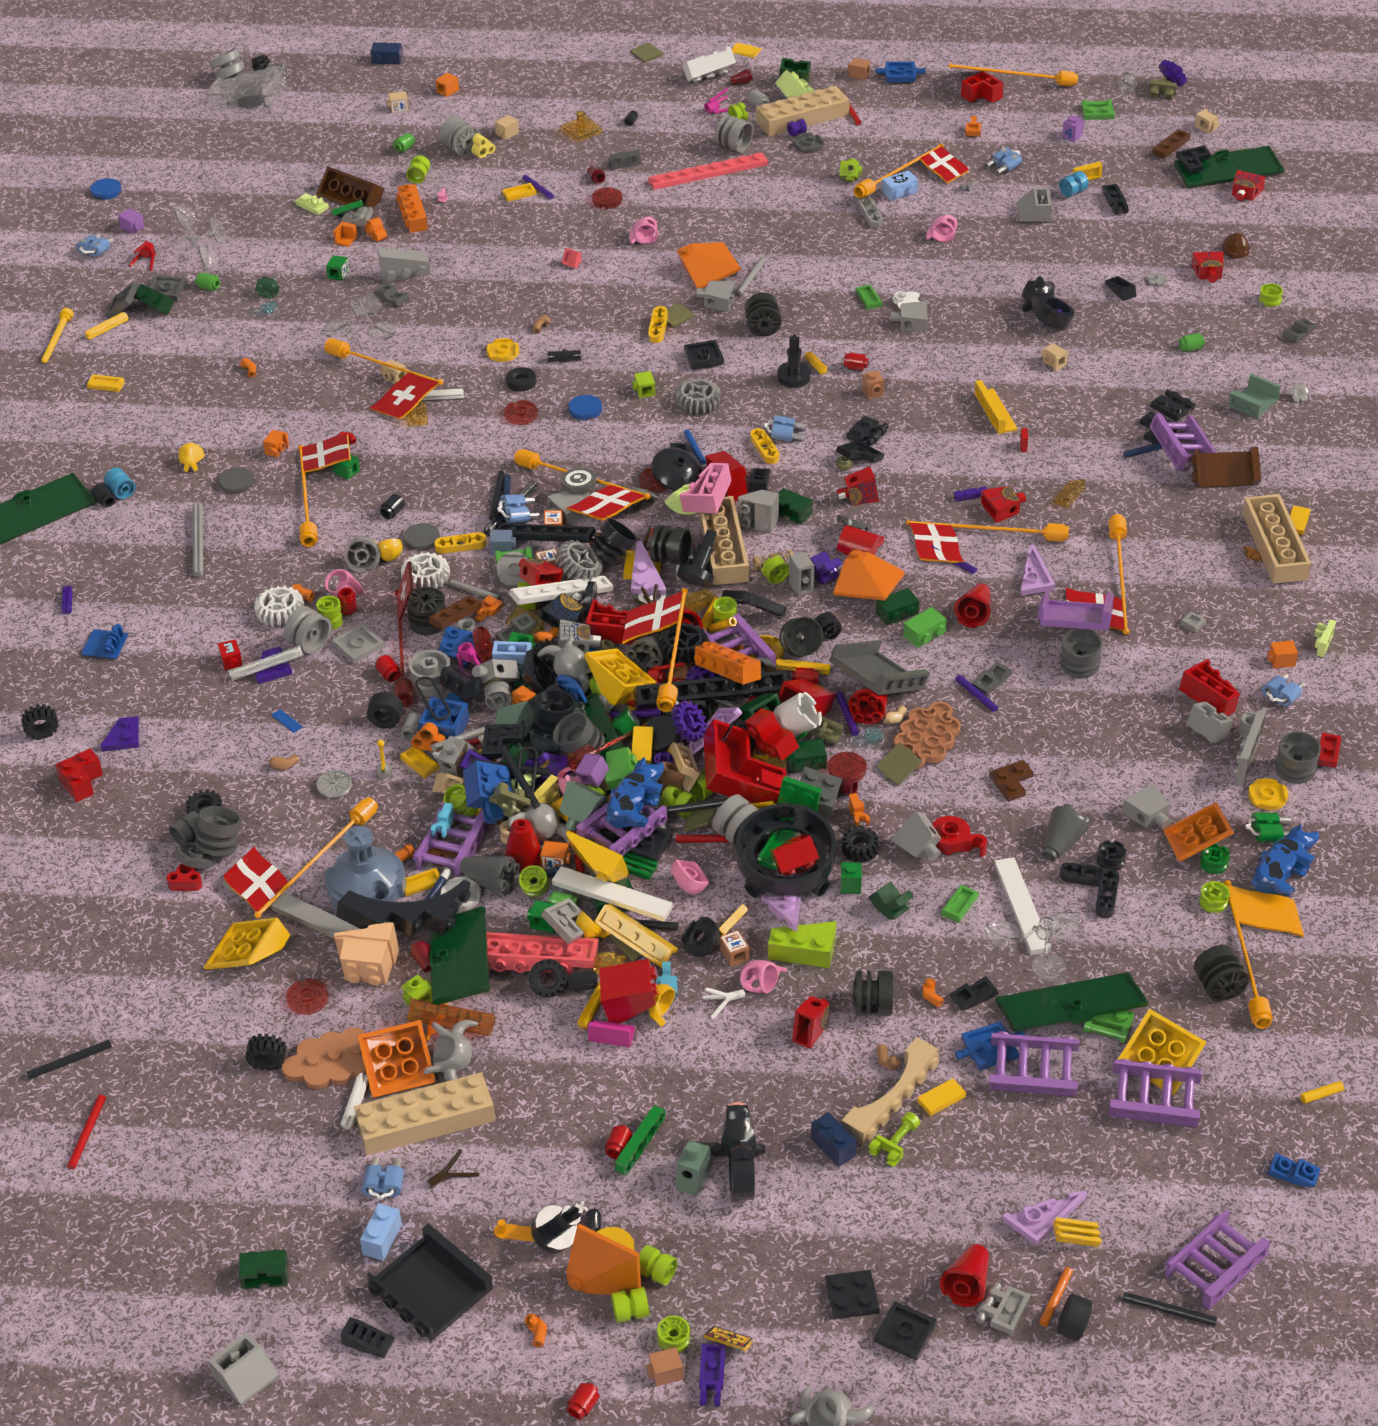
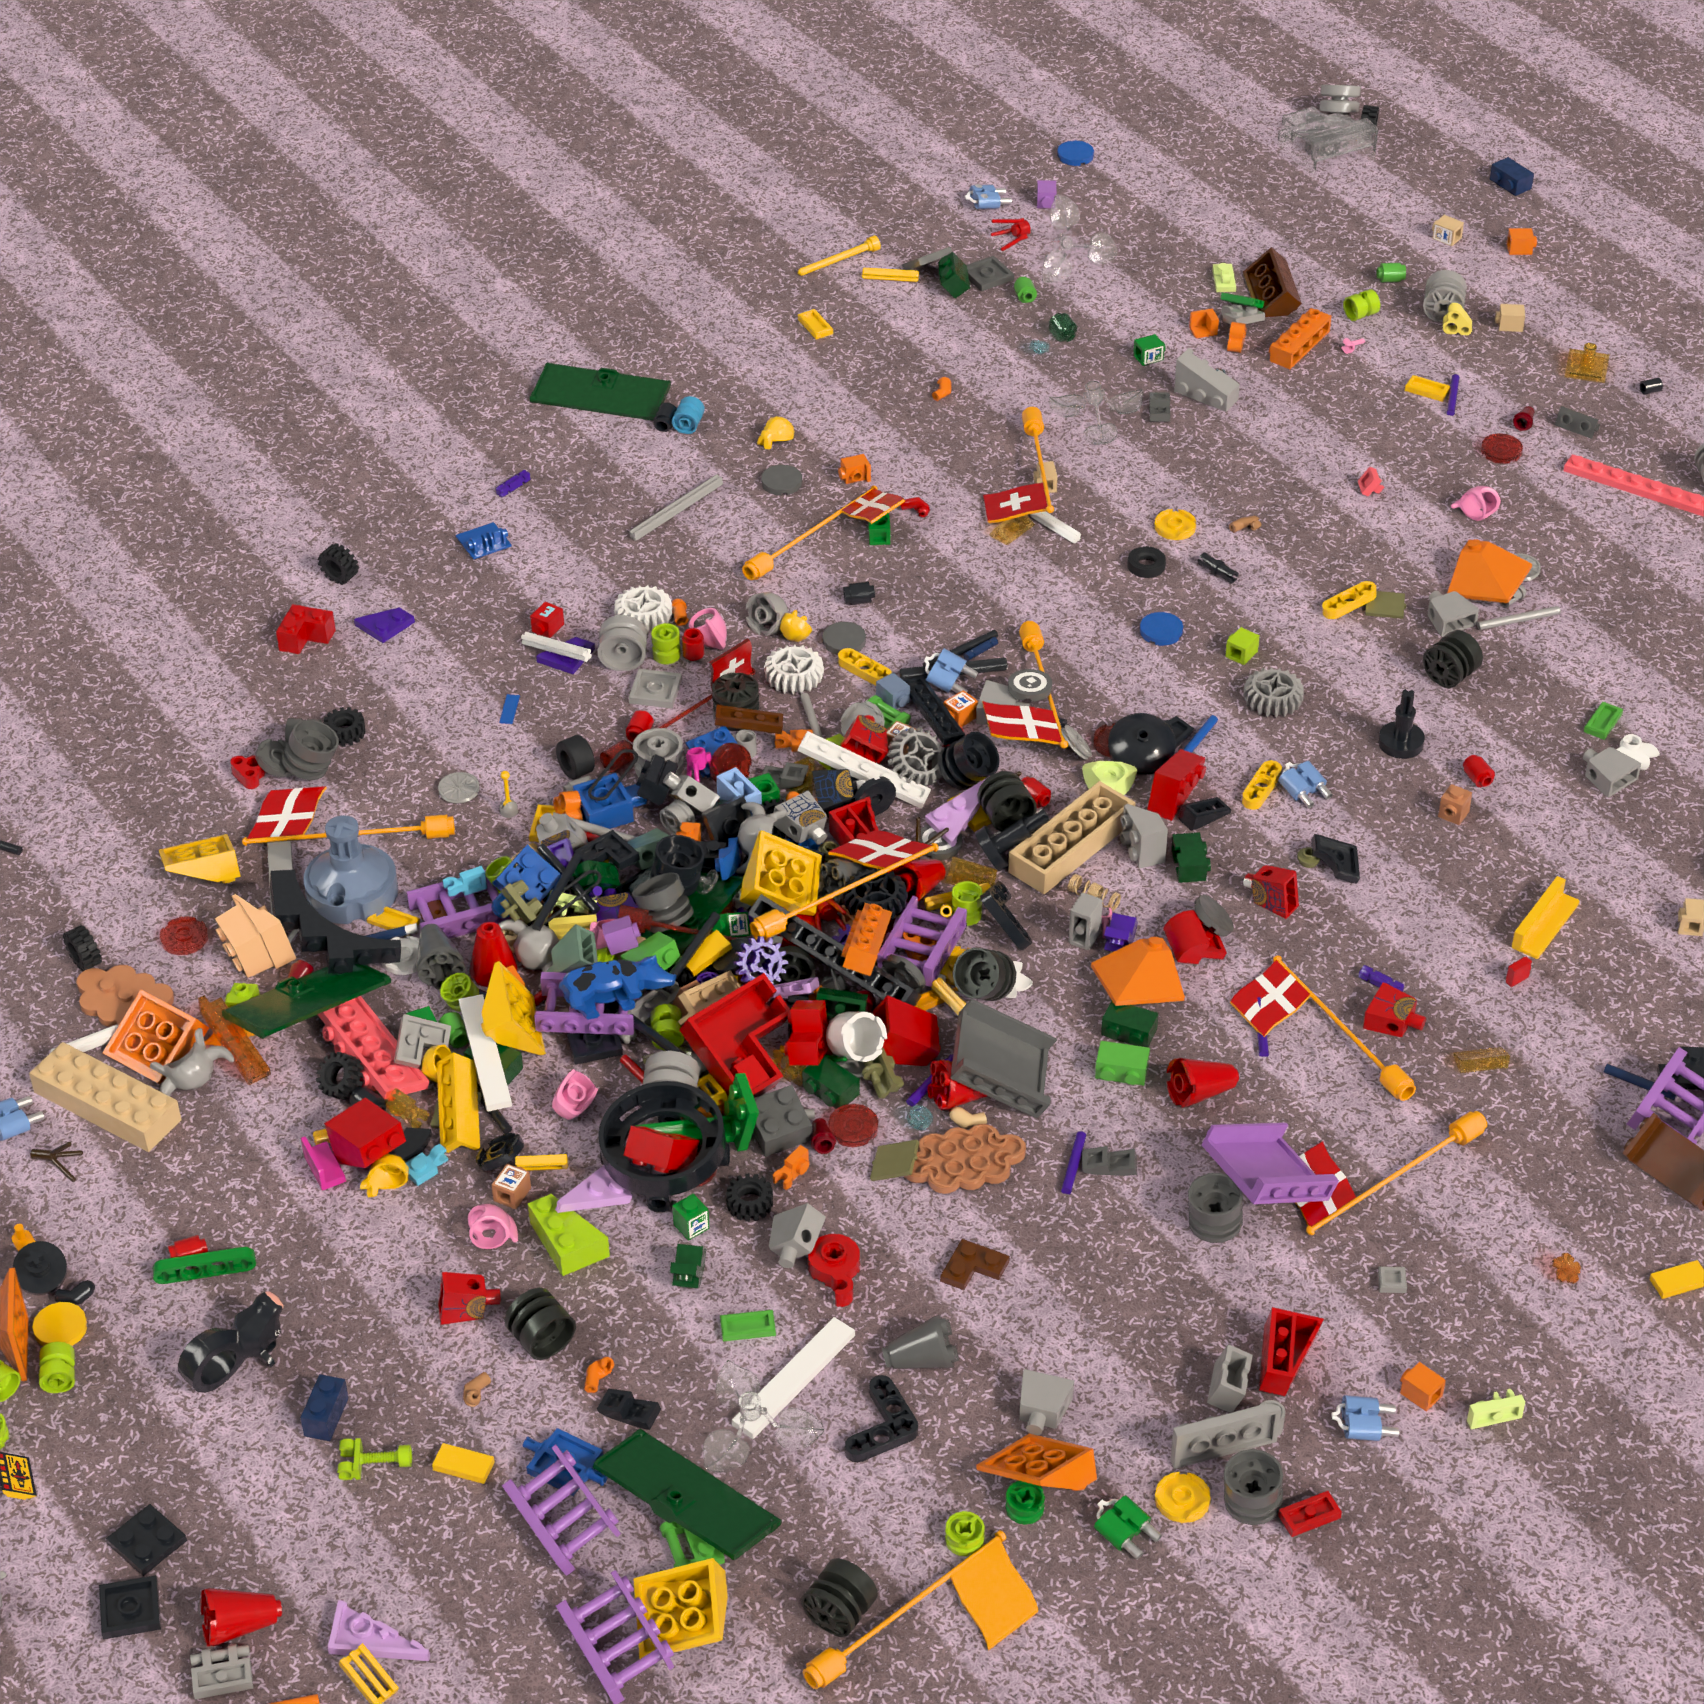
camera: 50 degrees right, 0 degrees up
(283, 763) = (450, 741): medium nougat arm -> none
(406, 852) = (406, 885): orange pin -> none
(521, 412) = (1099, 592): clear red tile -> none
(632, 737) = (694, 946): none -> black bar
(637, 863) = (554, 1036): green tile -> none
(694, 1159) = (195, 1316): sand green torso -> none
(703, 354) = (1345, 658): black plate -> none
(708, 490) = (1109, 777): bright pink wedge -> none
(721, 995) = (445, 1219): white plant -> none
(775, 569) = (1069, 895): lime wheel -> none
(808, 673) = (946, 1015): red brick -> none
(816, 362) = (1441, 744): yellow axle -> none
(829, 624) = (1034, 987): black wheel -> none
(863, 431) = (1382, 845): black plate -> none
(865, 1121) = (373, 1420): tan arch -> none
(1036, 576) = (1311, 1105): lavender wing -> none
(1111, 855) = (938, 1419): black wheel -> none
(1276, 538) = (1609, 1273): tan brick -> none
(1285, 857) = (1074, 1563): blue animal -> none

